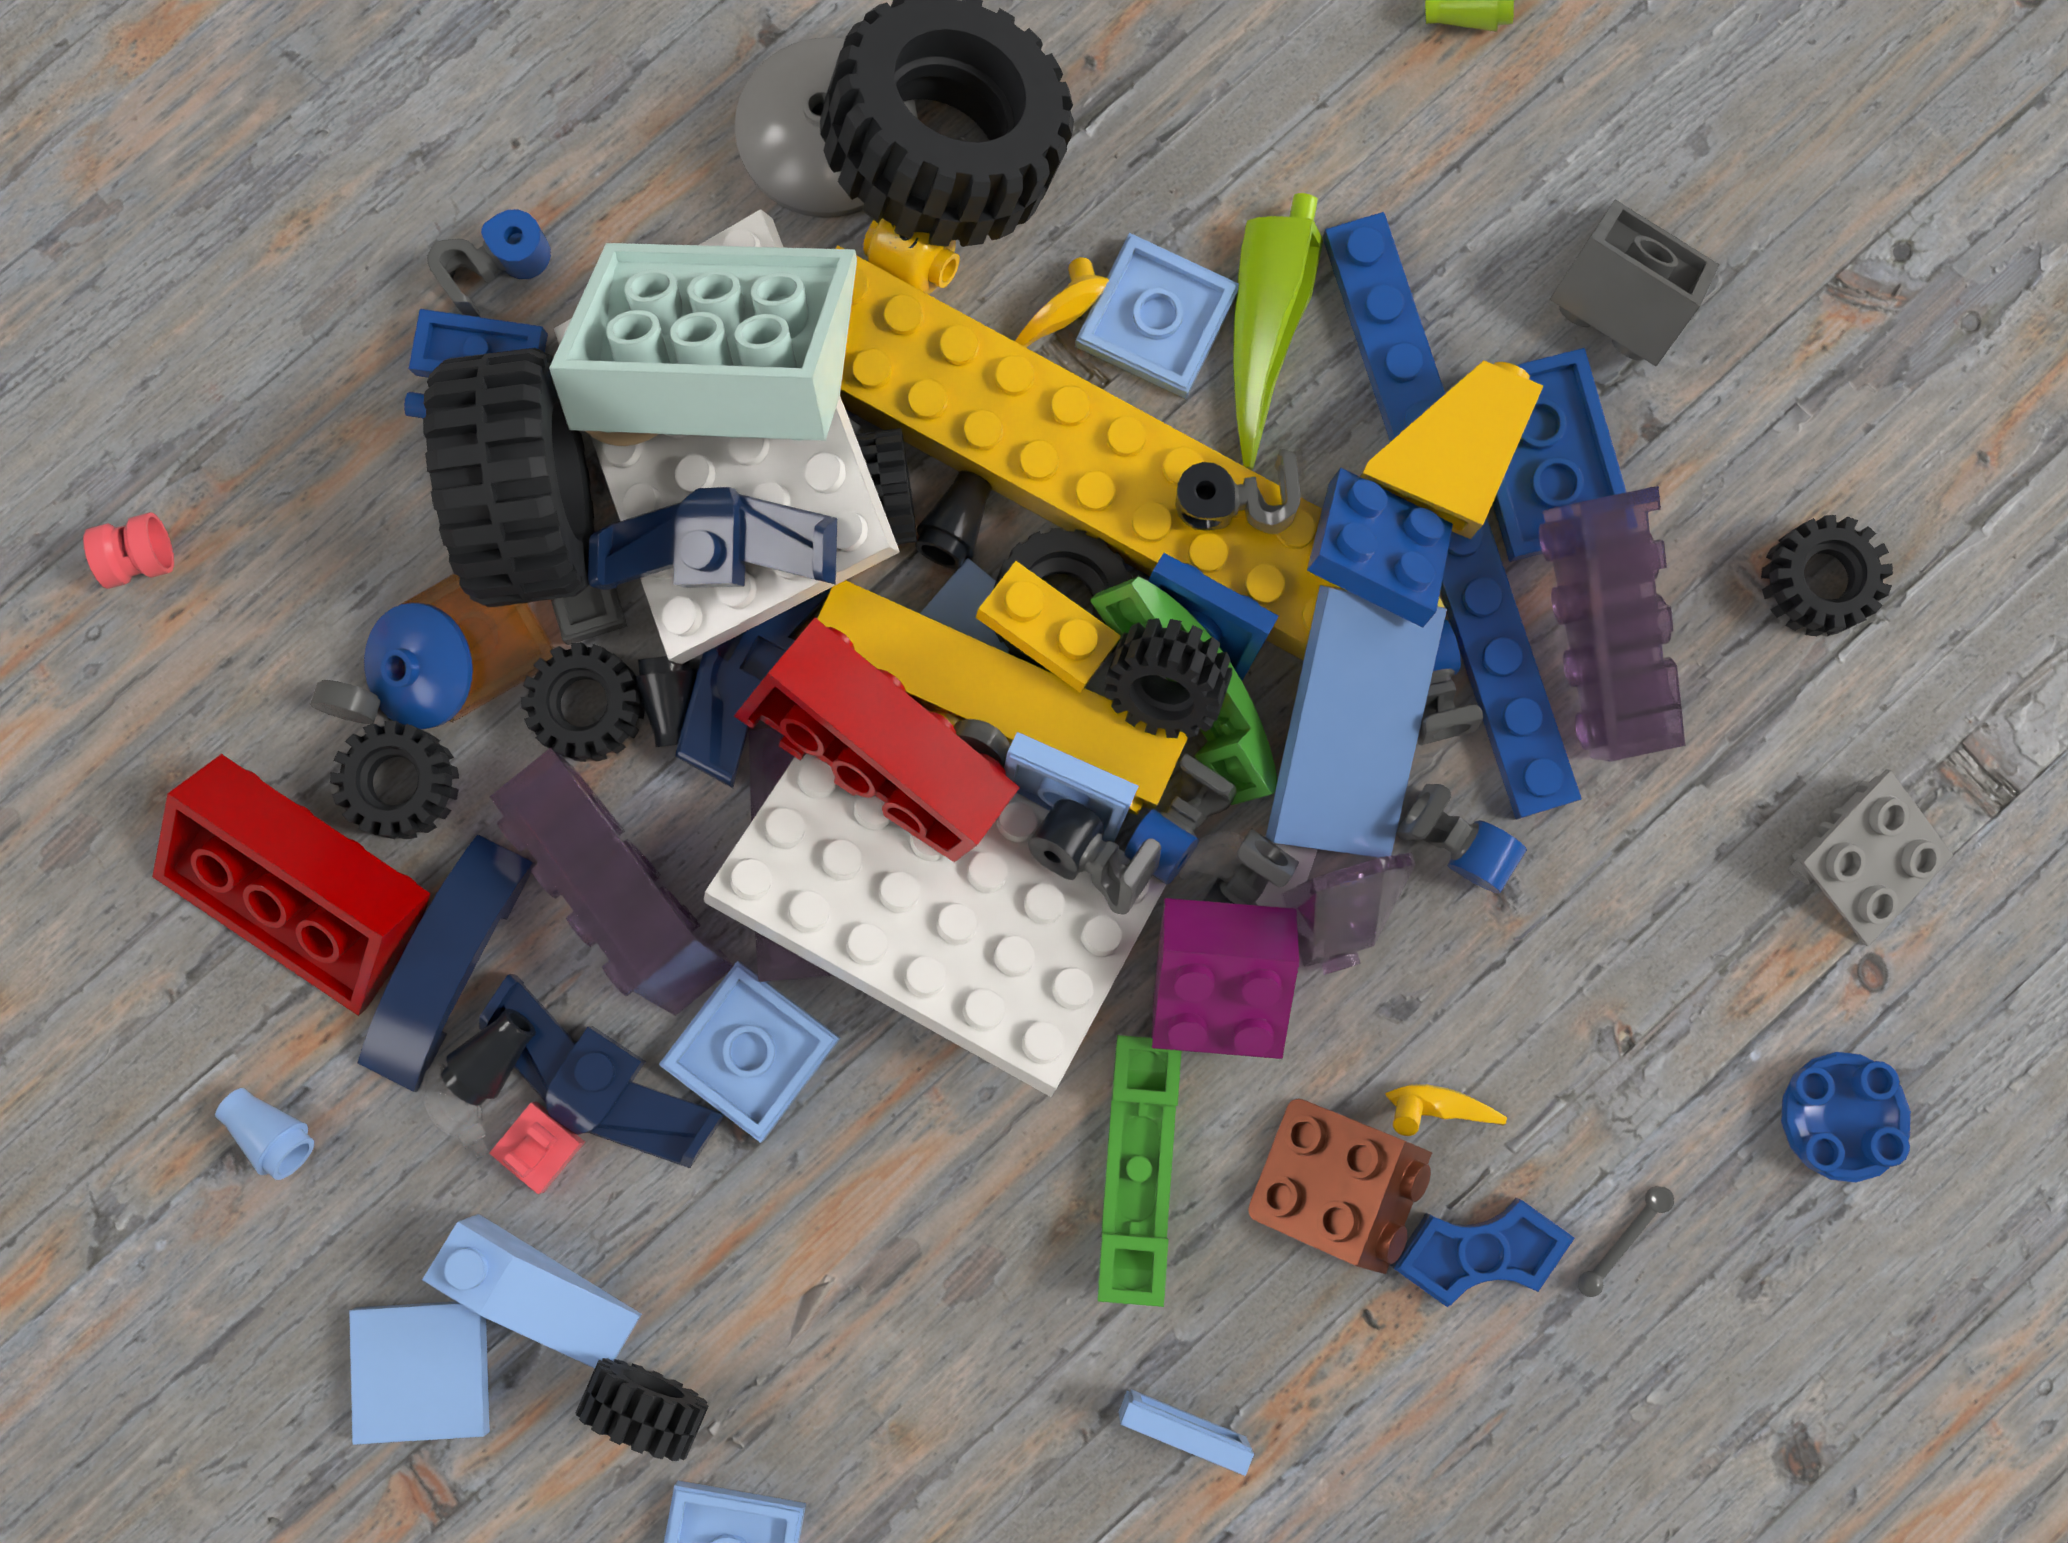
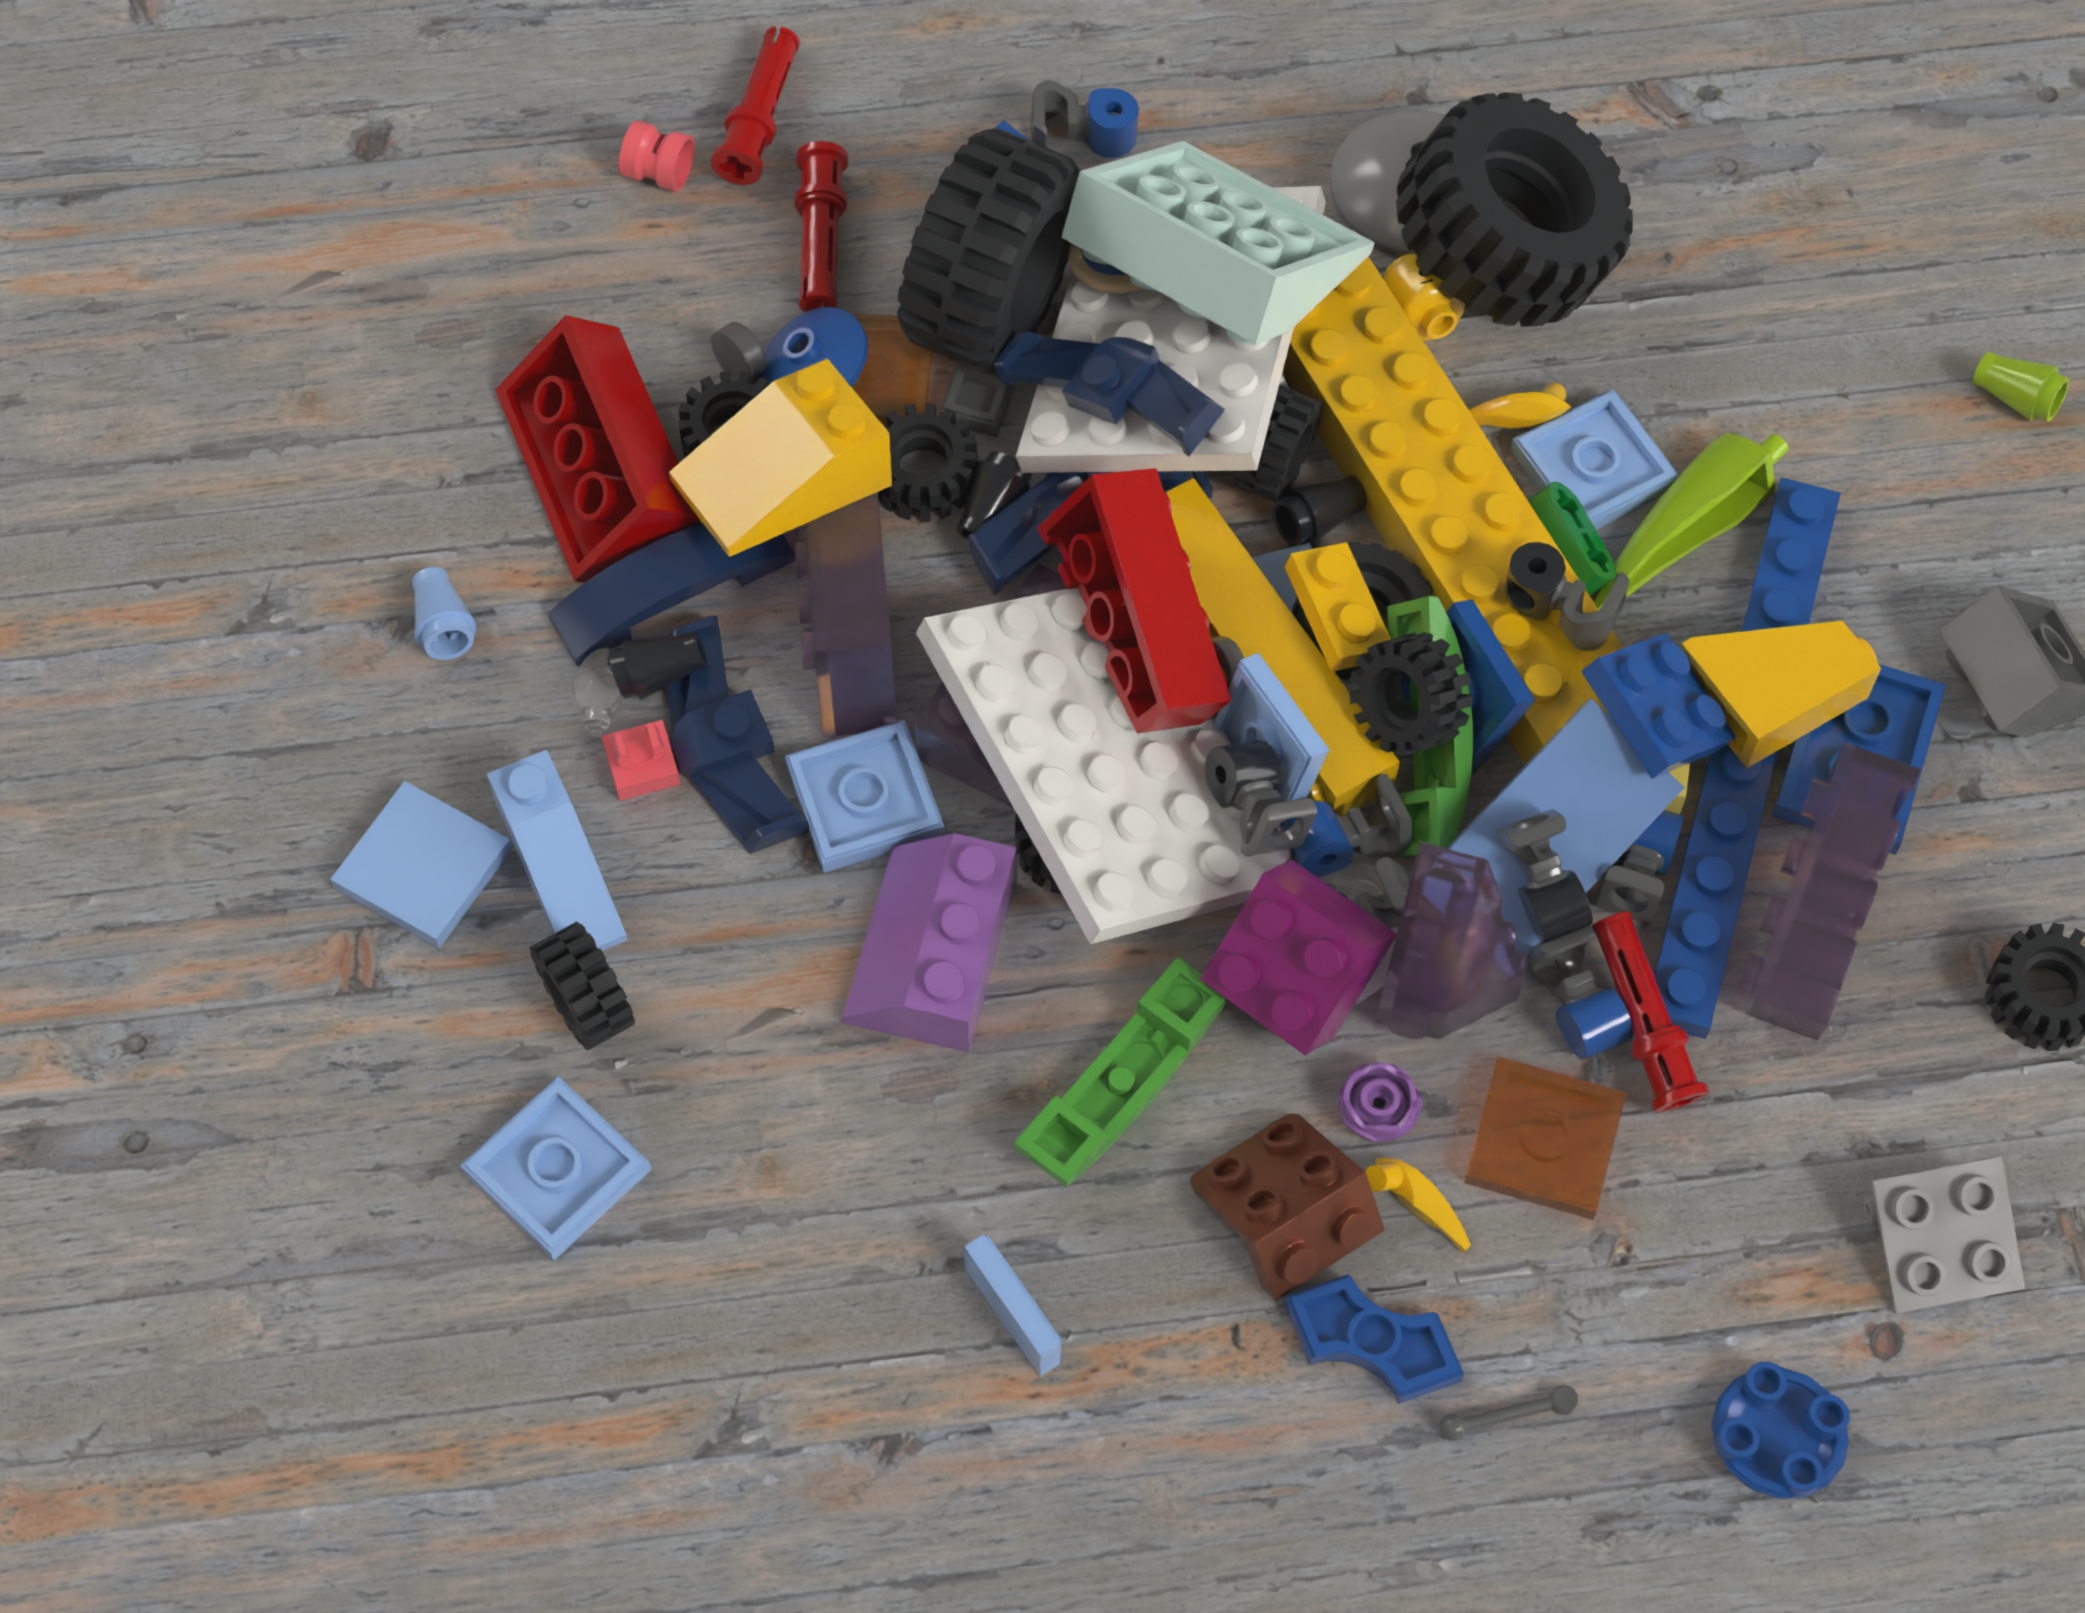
camera: 30 degrees right, 20 degrees down
(190, 457) = (751, 123): none -> red pin
(315, 503) = (820, 205): none -> red pin
(469, 809) = (786, 460): none -> yellow slope
(901, 1154) = (933, 940): none -> medium lavender slope
(1191, 409) = (1574, 535): none -> green beam
(1380, 1053) = (1381, 1083): none -> medium lavender plate
(1392, 776) = (1552, 896): none -> leg
(1507, 982) = (1545, 1138): none -> clear orange tile
(1551, 843) = (1657, 1041): none -> red pin

